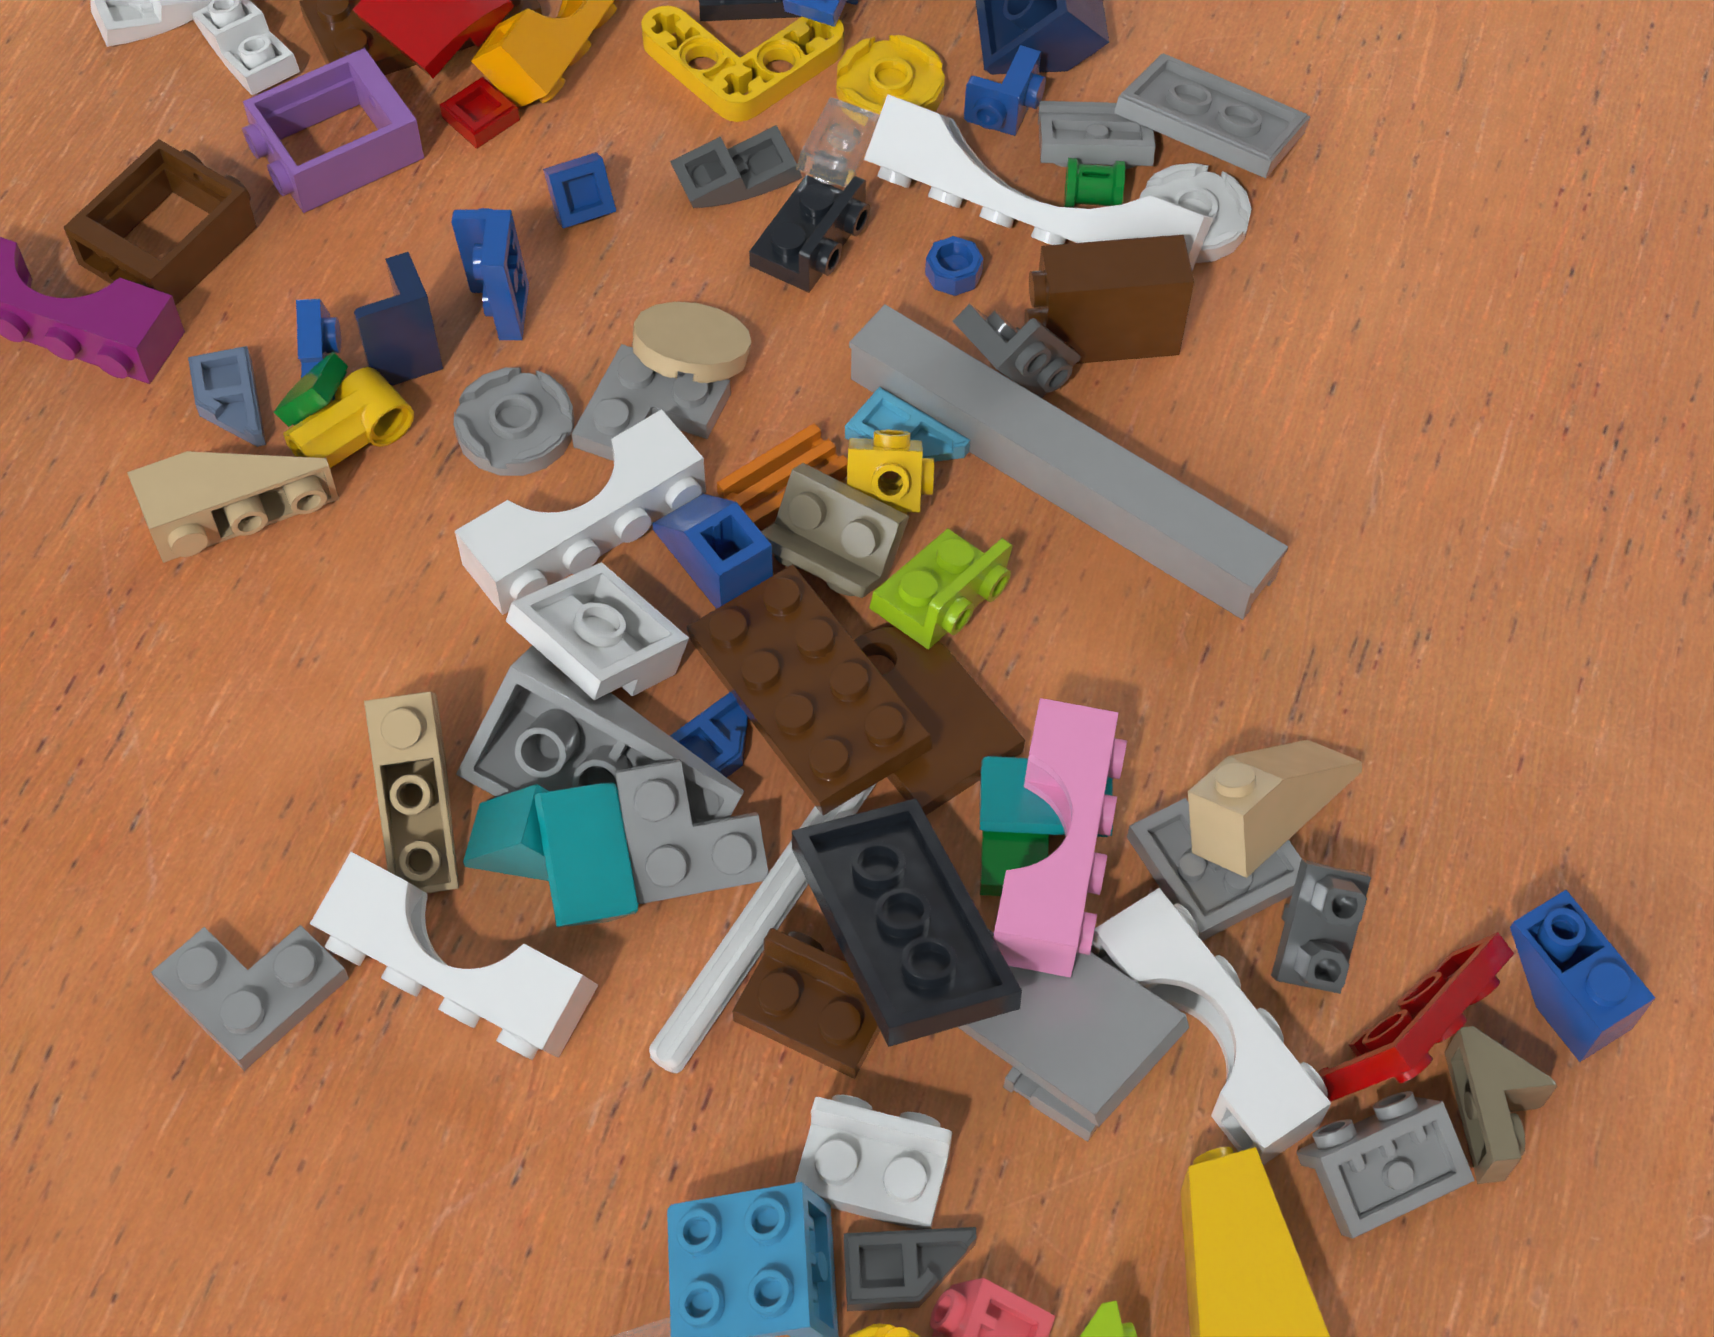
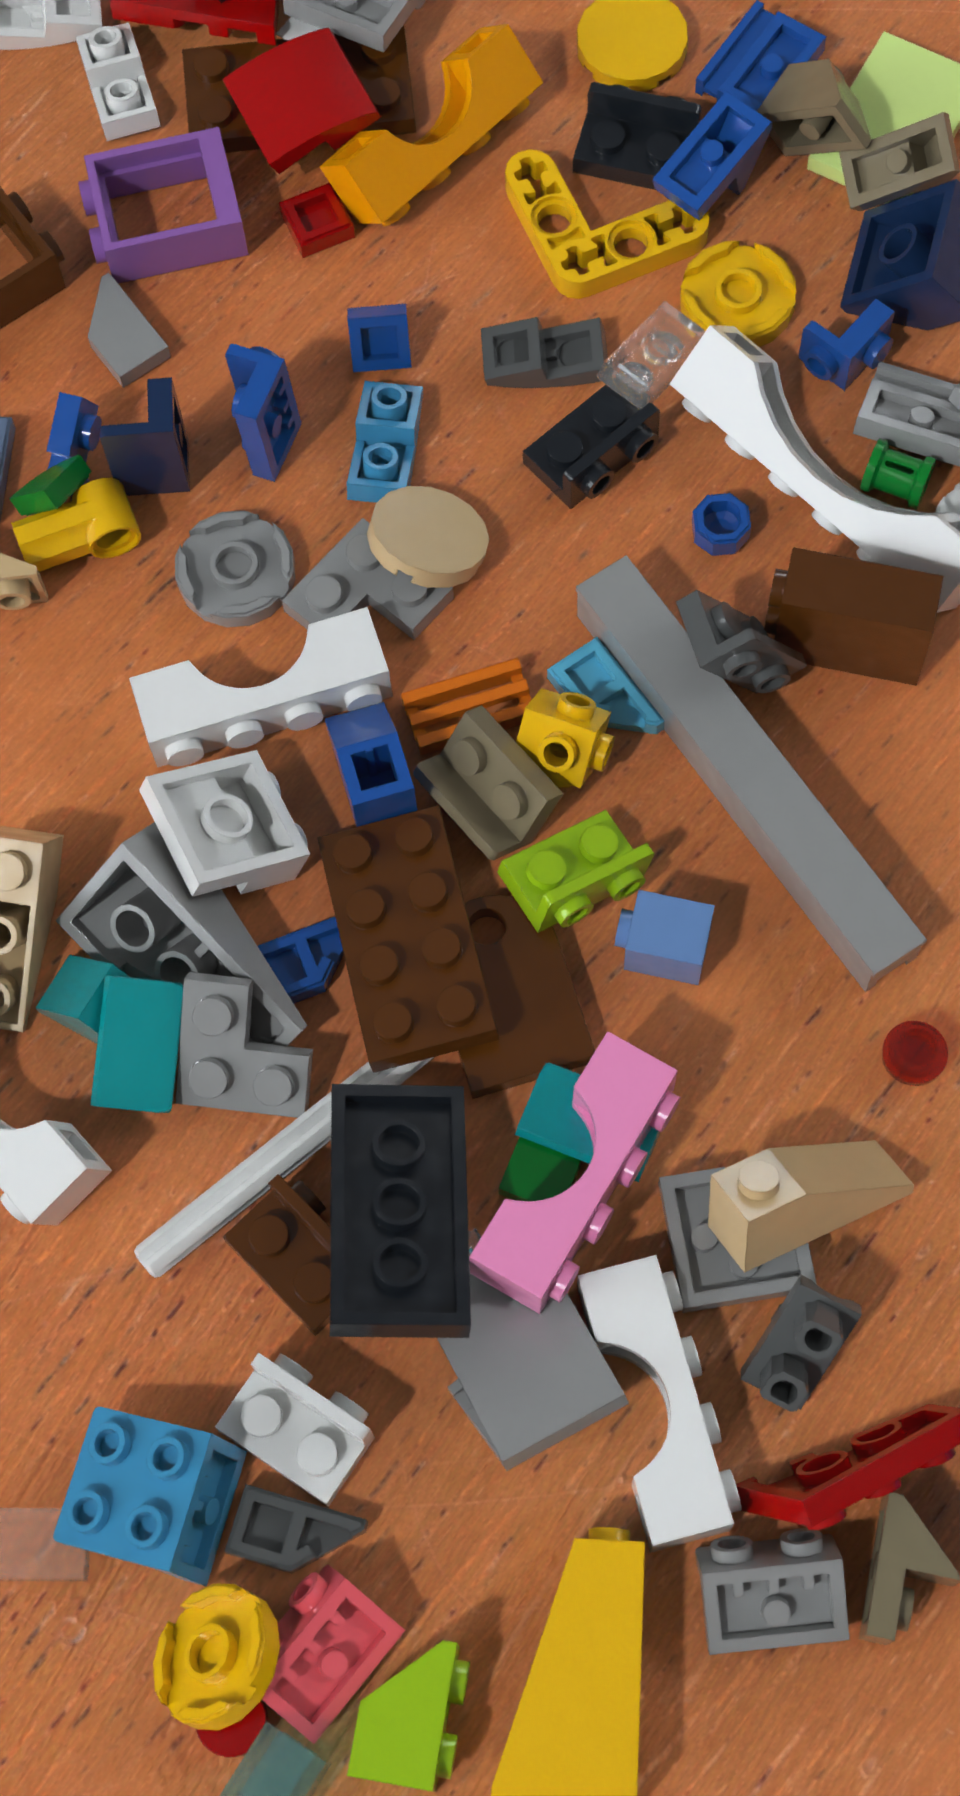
camera: 25 degrees right, 10 degrees up
(331, 251) = (123, 335): none -> light grey tile
(615, 276) = (384, 440): none -> dark azure slope
(1049, 618) = (665, 936): none -> medium blue brick
(1311, 653) = (914, 1053): none -> clear red plate

